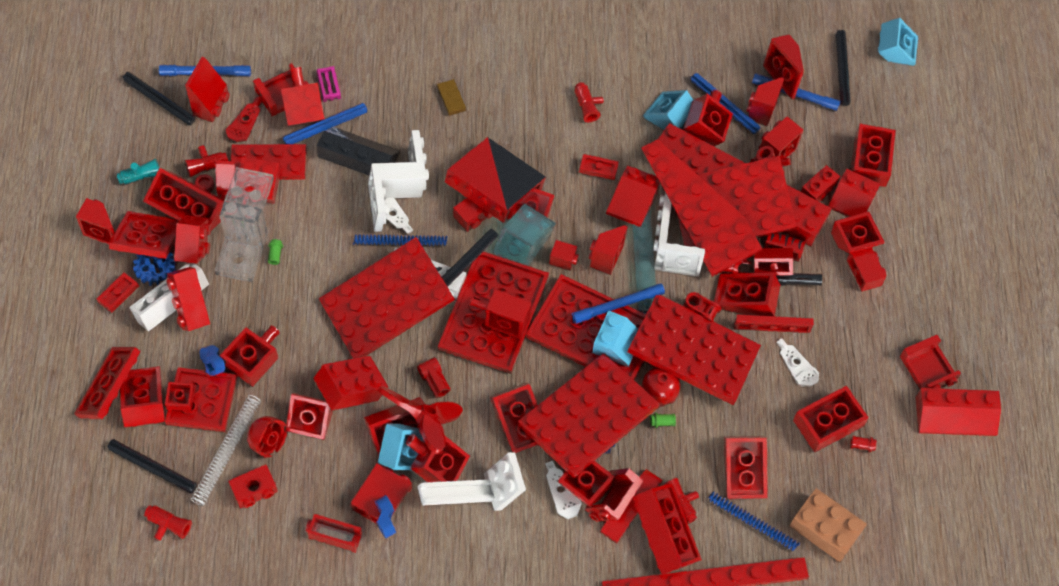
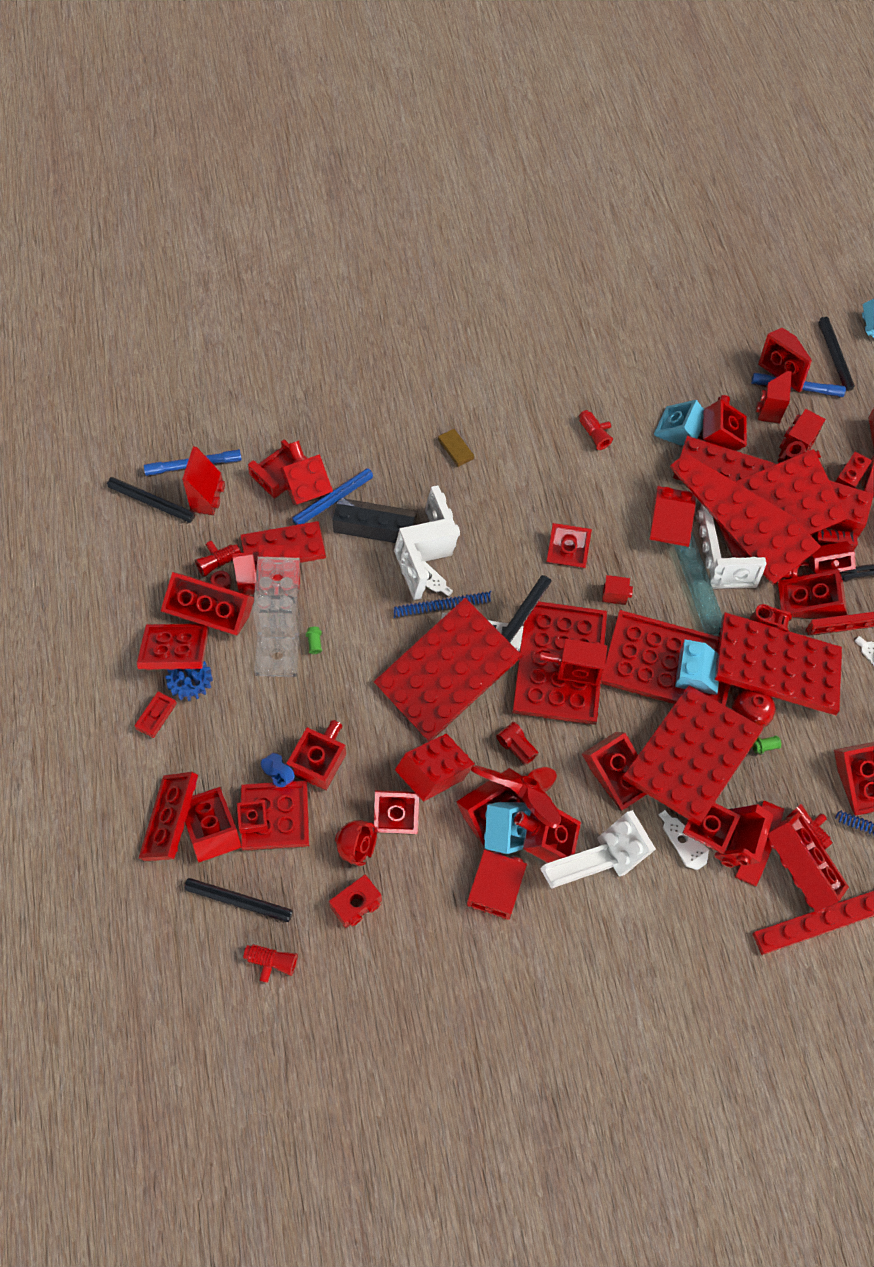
camera: 10 degrees left, 0 degrees up
(95, 221) = (116, 642): red slope -> none
(138, 172) = (148, 581): teal piece -> none
(158, 302) = (213, 708): white brick -> none
(188, 299) = (237, 708): brick -> none
(192, 239) = (225, 642): red brick -> none
(225, 445) = (301, 929): white piece -> none
(241, 126) = (247, 515): red piece -> none
(331, 95) = (337, 464): dark pink tile -> none
(334, 532) = (456, 935): red window -> none
(386, 511) = (513, 916): blue piece -> none
(469, 214) = (512, 558): red brick -> none
(493, 178) = (525, 523): red panel -> none
(524, 235) = (572, 577): clear light blue slope -> none
(588, 313) = (661, 645): blue piece -> none
(599, 167) = (626, 493): red plate -> none
(607, 249) = (662, 576): red slope -> none
(738, 114) = (752, 418): blue axle -> none

